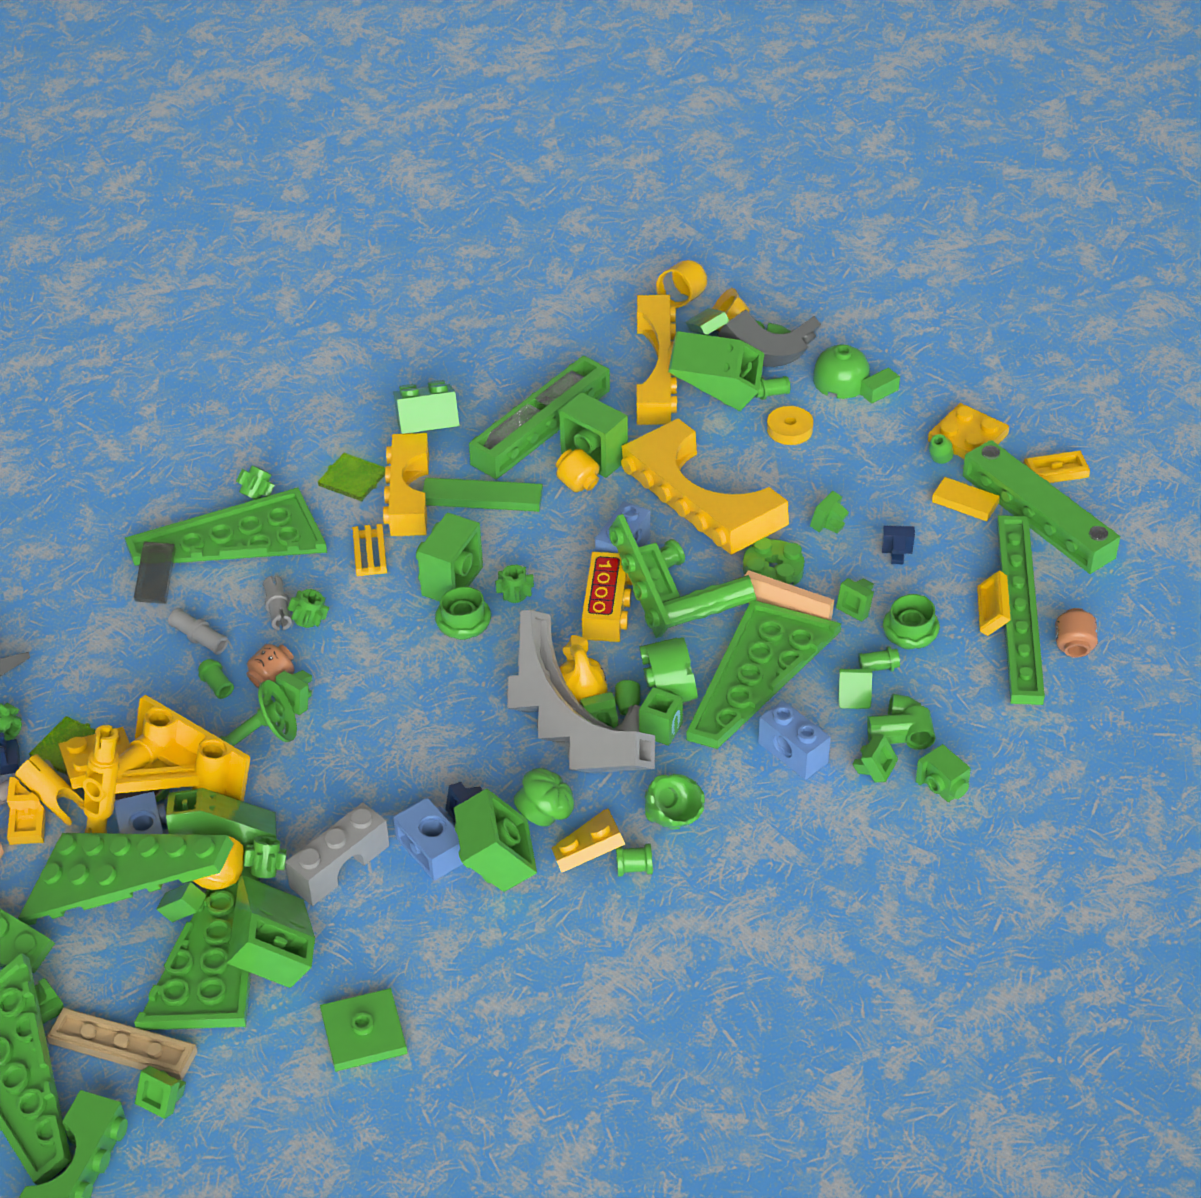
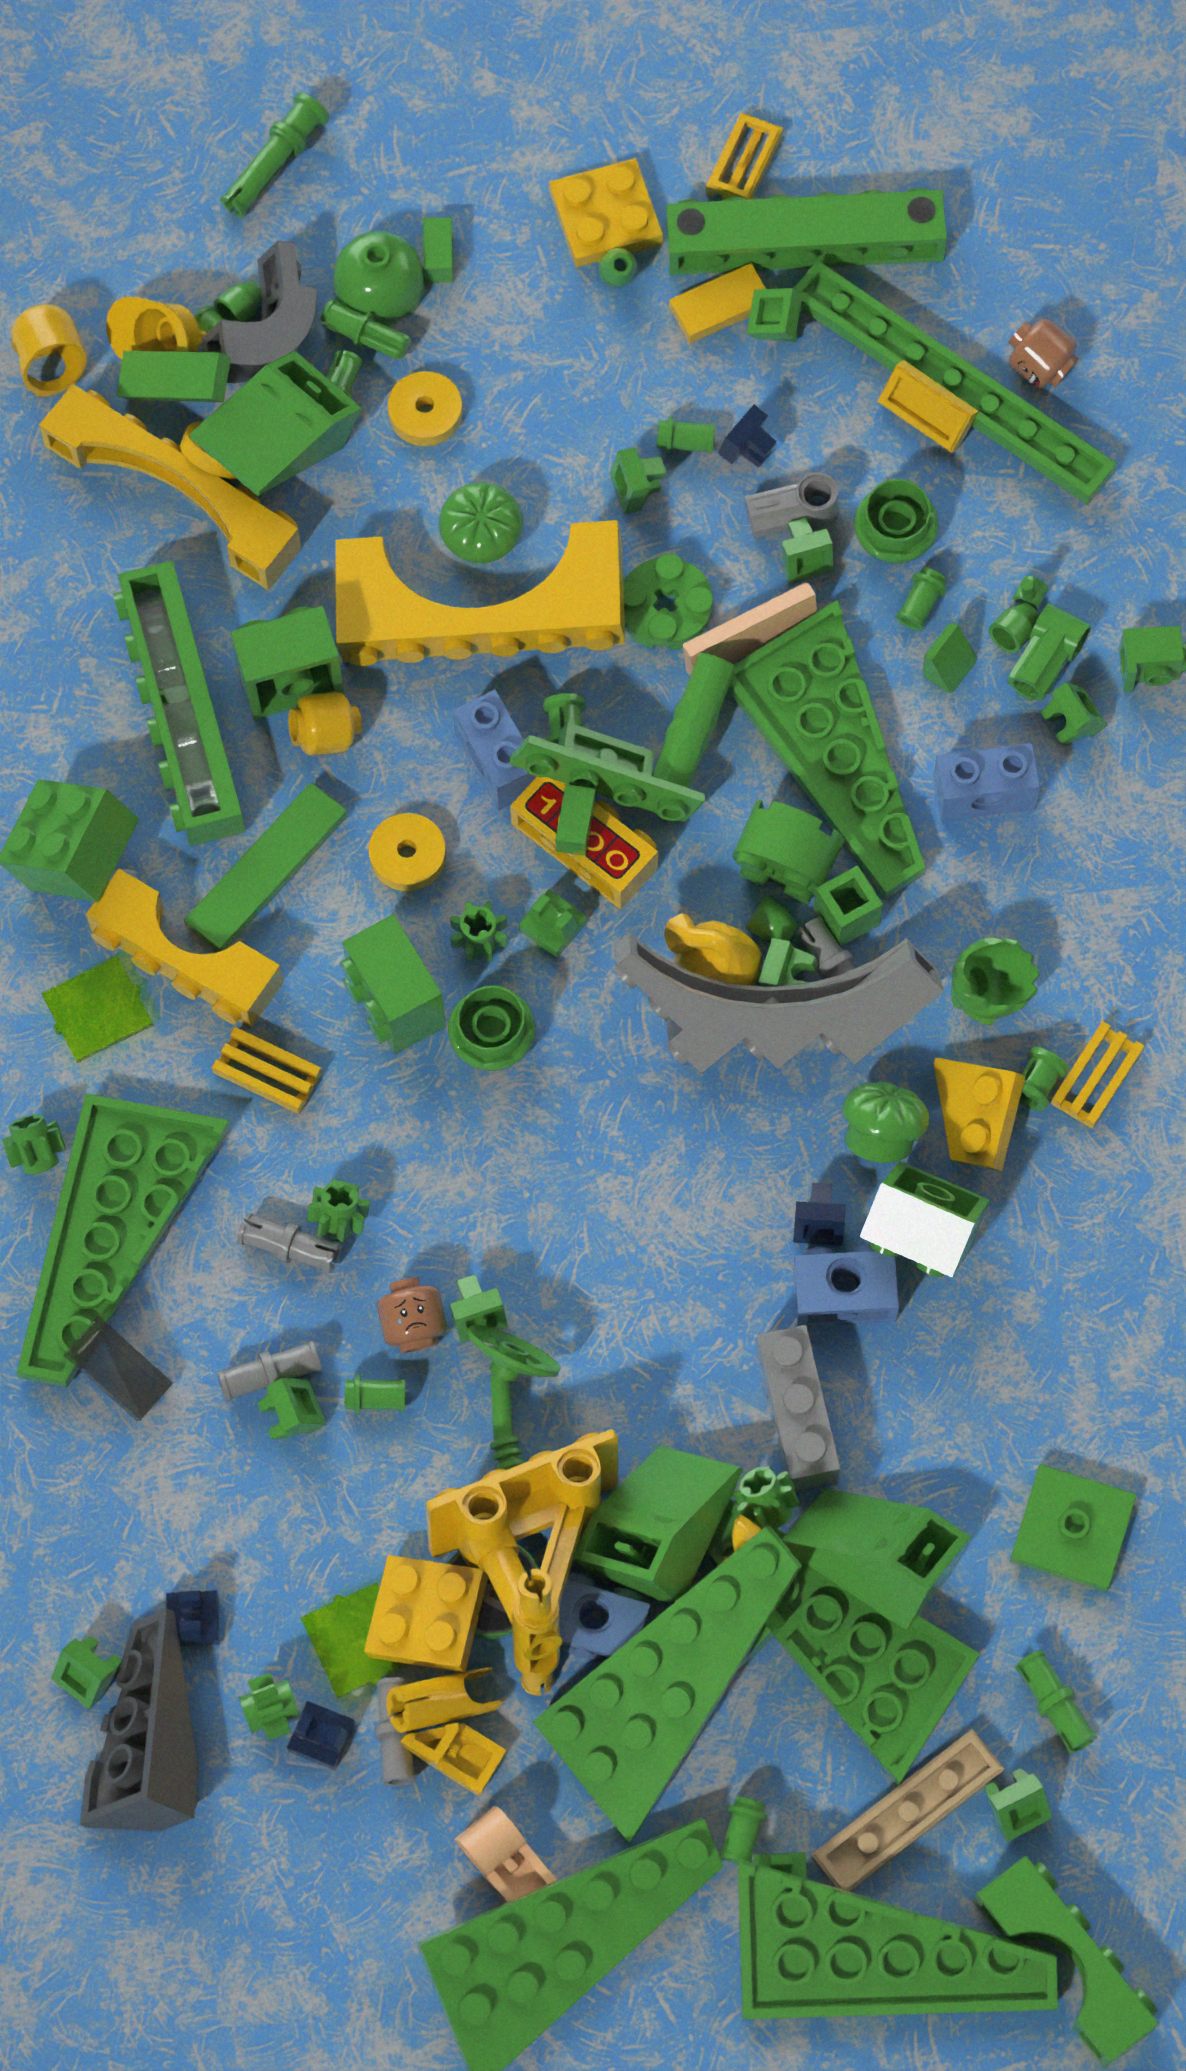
camera: 55 degrees left, 25 degrees up
(36, 673) = (195, 1616): none -> dark blue tile
(59, 966) = (743, 1829): none -> bright green pin
(183, 649) = (295, 1408): none -> bright green tile
(240, 1077) = (1056, 1701): none -> bright green pin
(538, 540) = (401, 832): none -> yellow piece
(552, 606) = (552, 923): none -> bright green tile
(603, 574) = (575, 820): none -> bright green piece
(663, 885) = (1118, 1042): none -> yellow tile
(743, 469) = (480, 522): none -> bright green piece
(808, 380) = (364, 329): none -> bright green axle
(870, 516) = (685, 436): none -> bright green pin
(879, 307) = (285, 140): none -> bright green pin
(888, 581) = (773, 509): none -> light grey piece
(931, 703) = (1031, 590): none -> bright green hand
(977, 513) = (775, 314): none -> bright green tile

